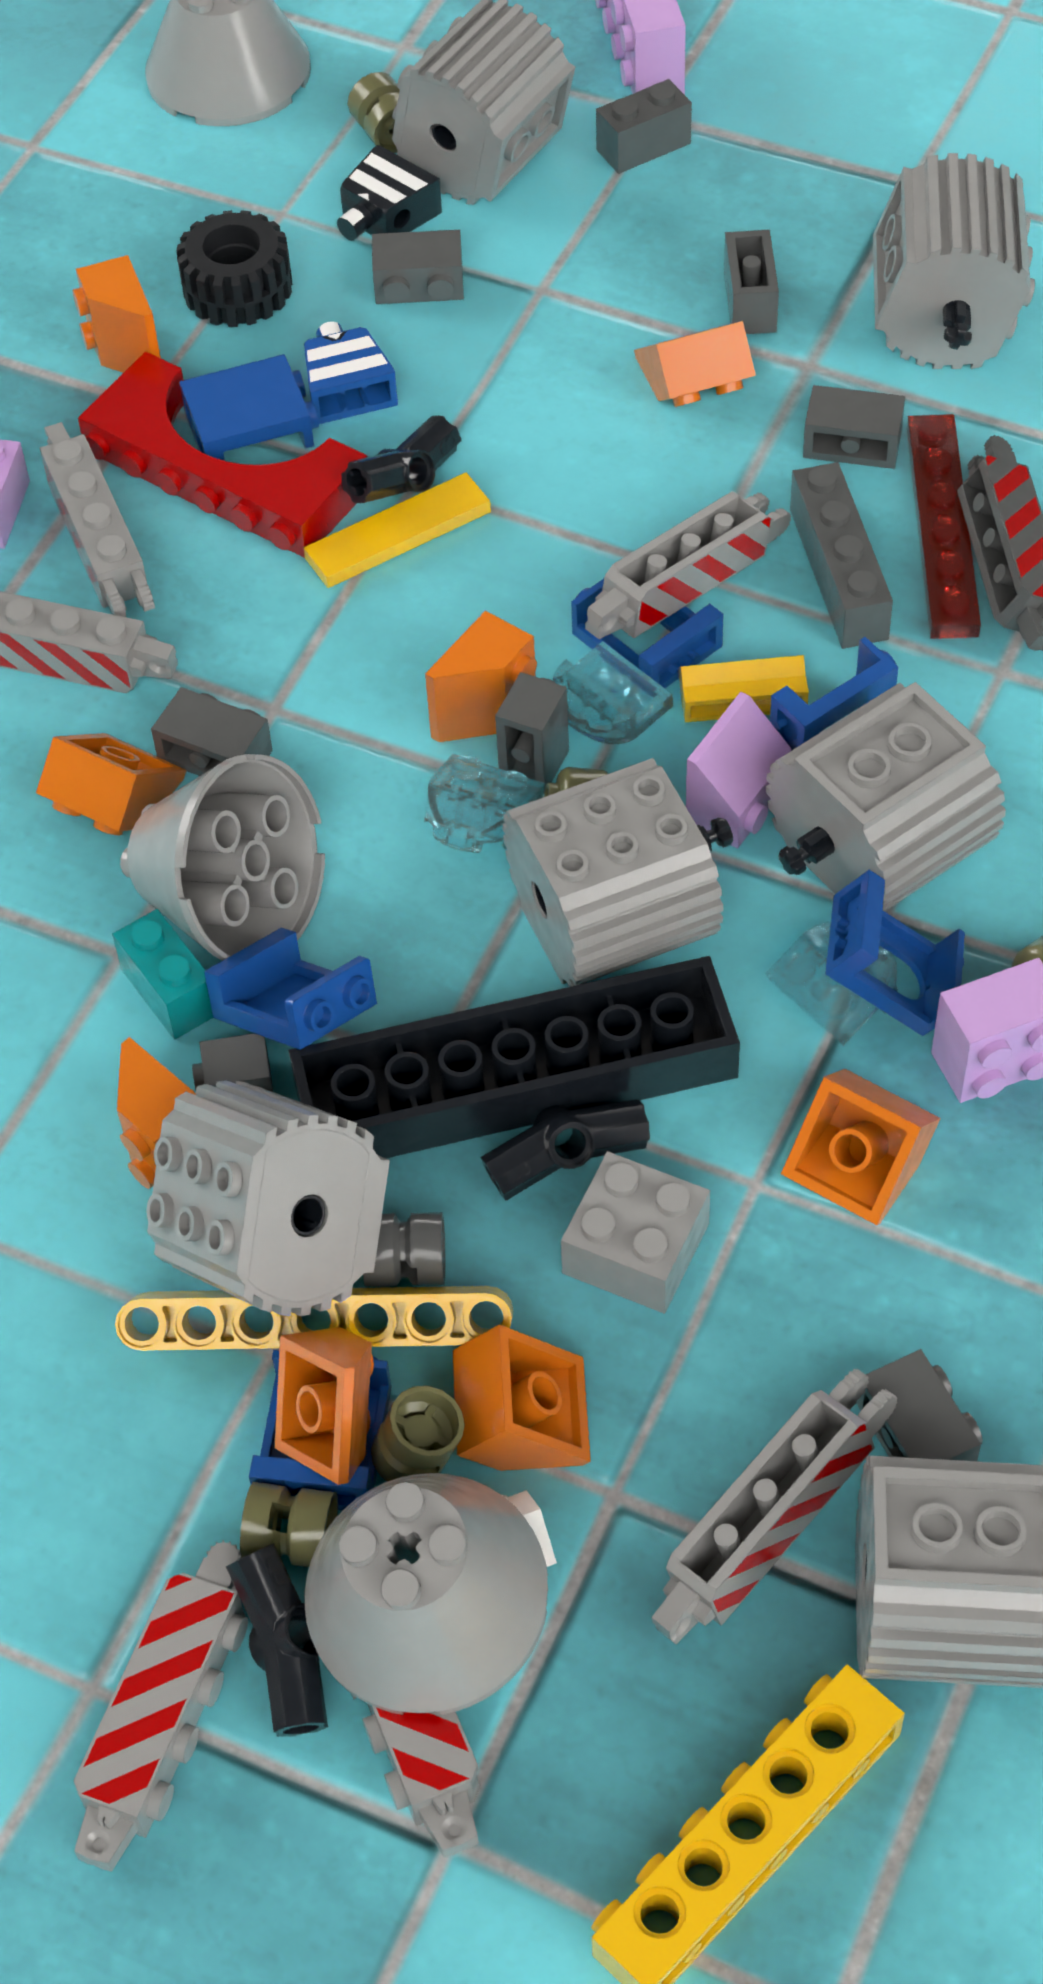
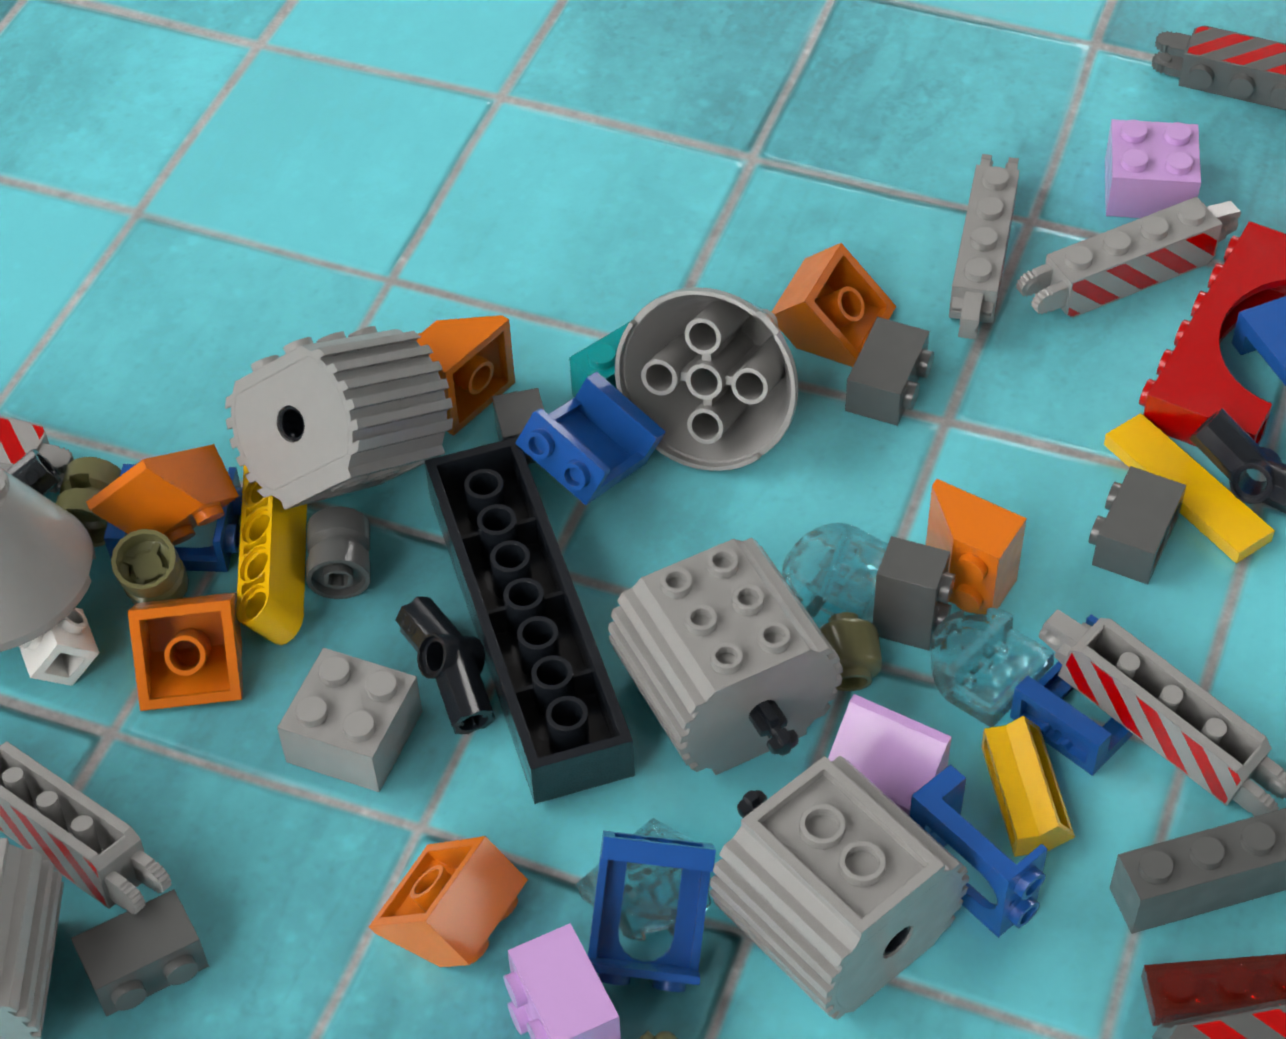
camera: 85 degrees right, 5 degrees down
(449, 565) = (1137, 524): none -> dark grey brick

